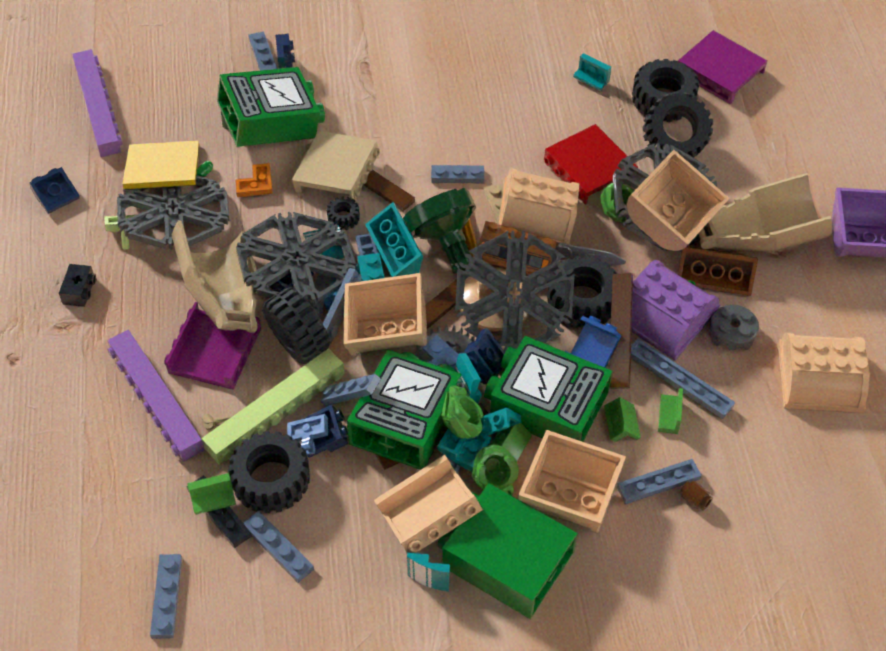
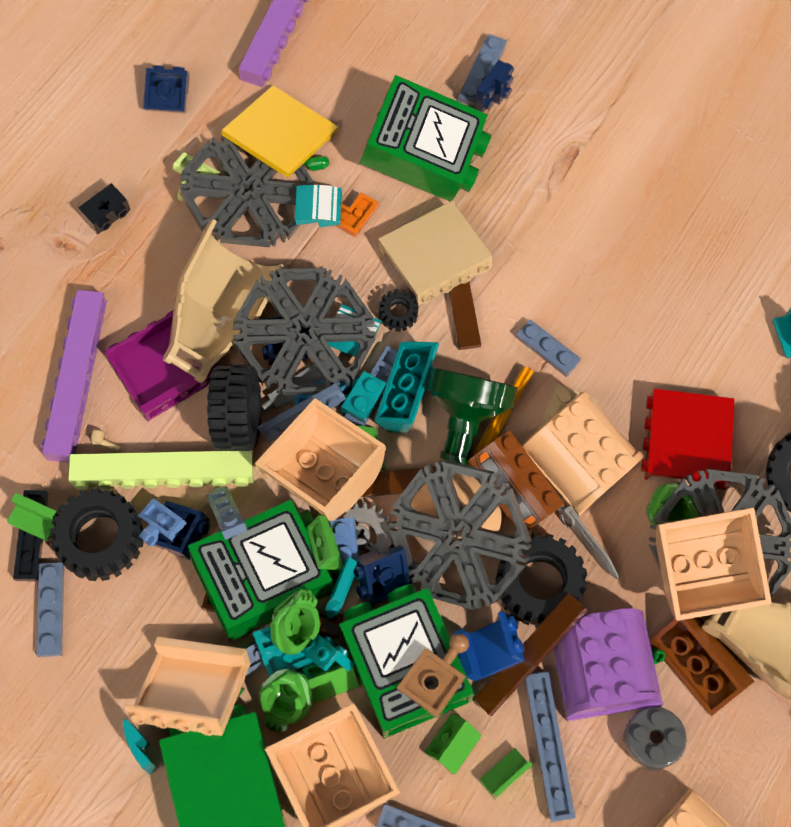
camera: 40 degrees right, 15 degrees up
(232, 186) = (318, 205): none -> teal slope
(435, 355) = (324, 544): none -> bright green panel
(588, 370) = (432, 666): none -> medium nougat plate

